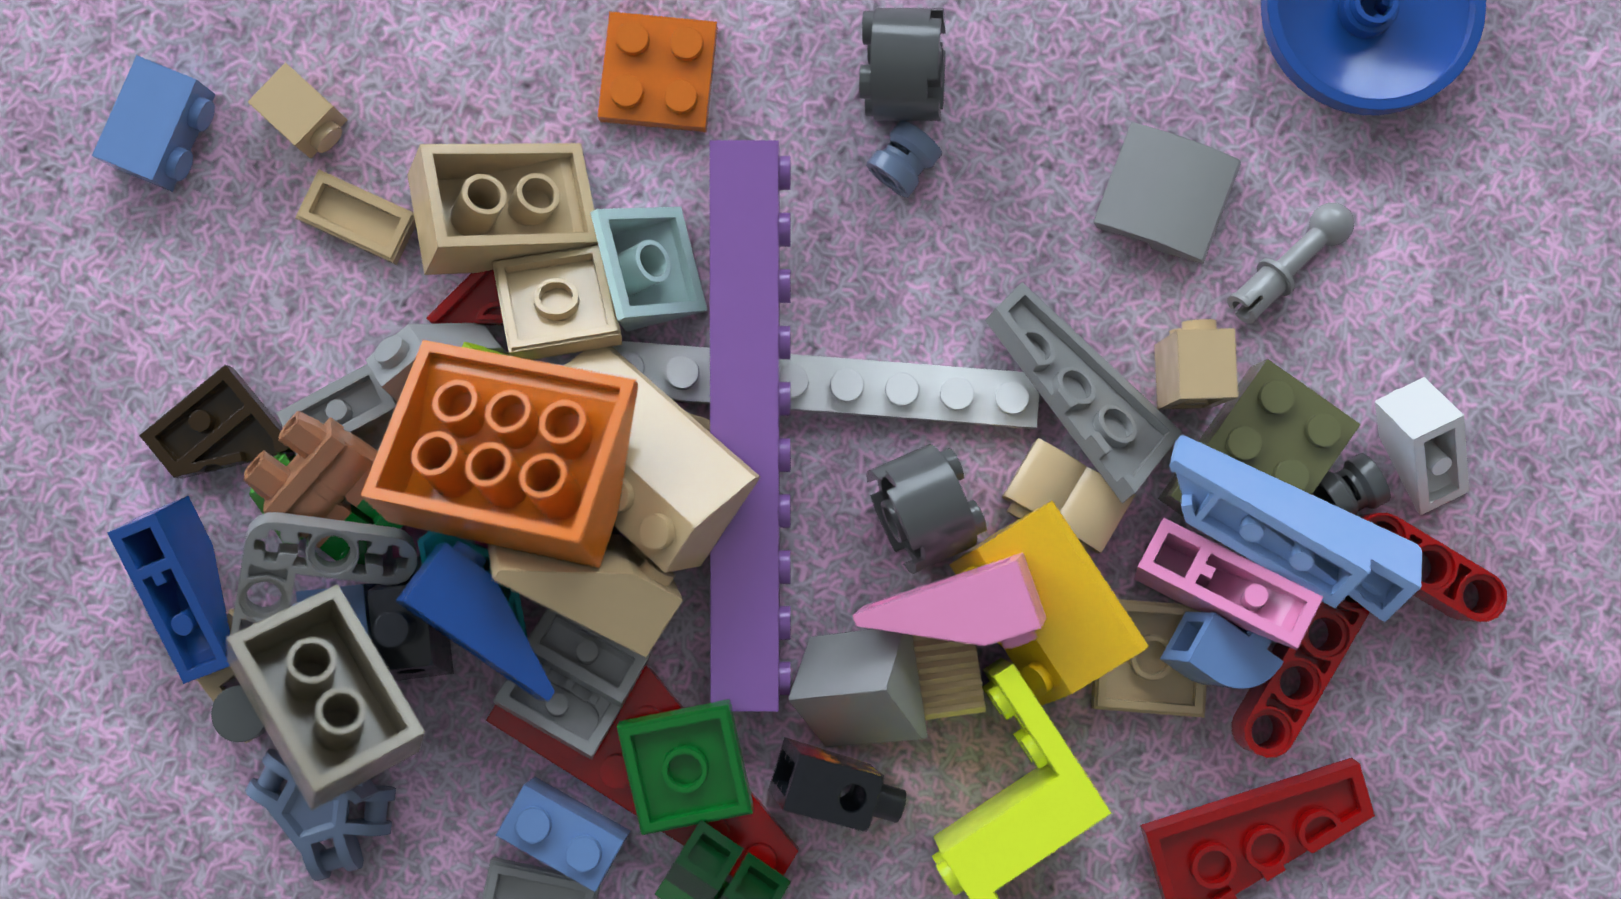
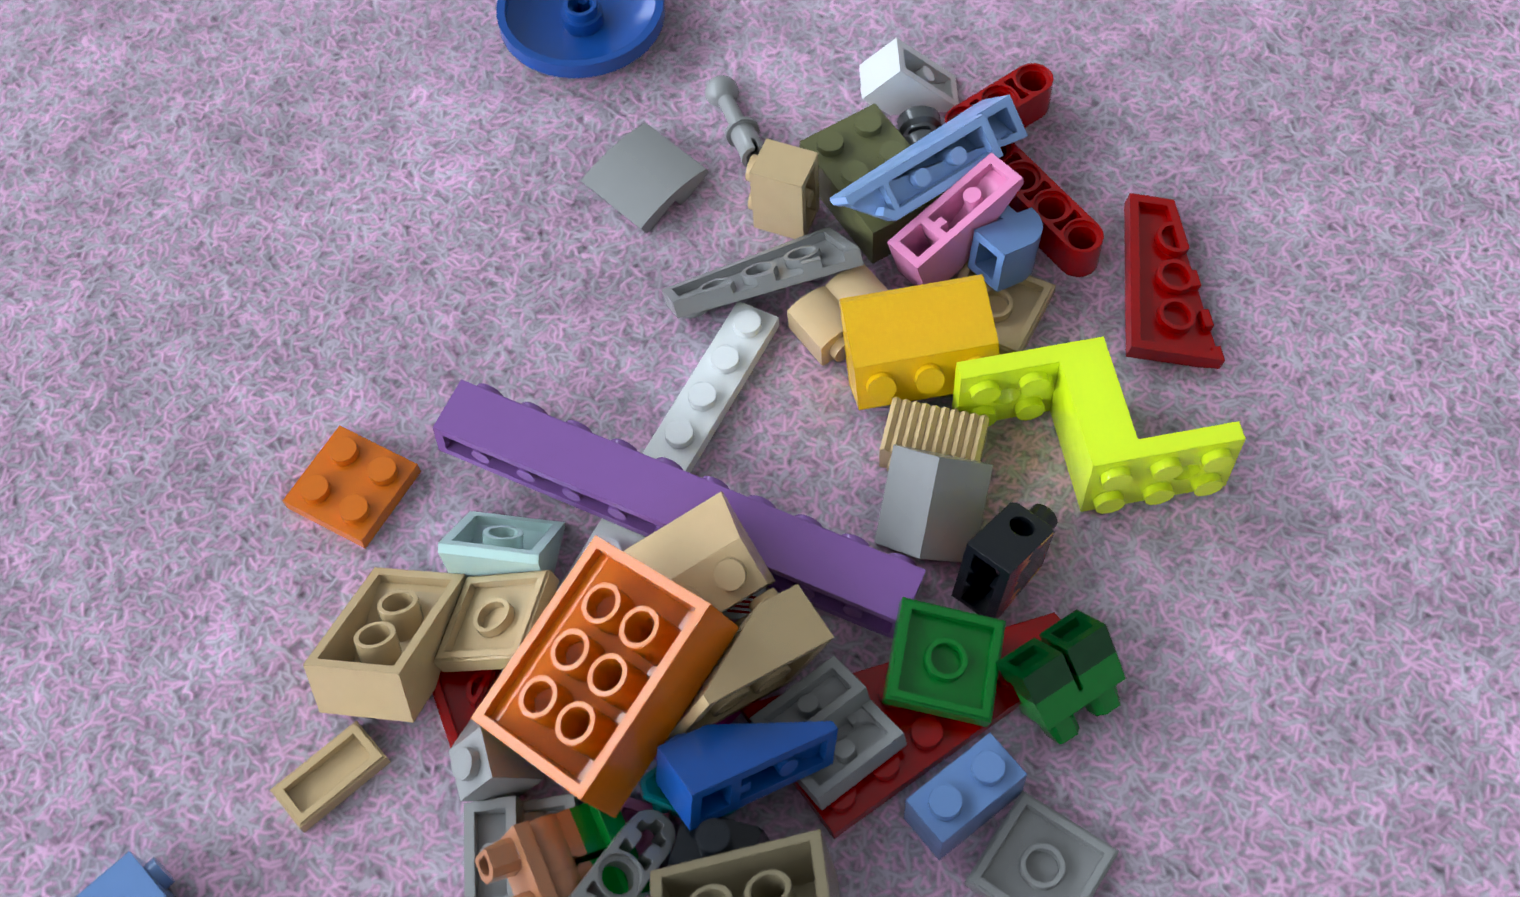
camera: 65 degrees left, 25 degrees down
(299, 112) = (211, 782): tan brick -> none
(904, 158) = (521, 328): sand blue wheel -> none
(905, 64) = (452, 297): dark grey brick -> none
(926, 506) = (804, 404): dark grey brick -> none
(970, 607) = (898, 375): bright pink slope -> none

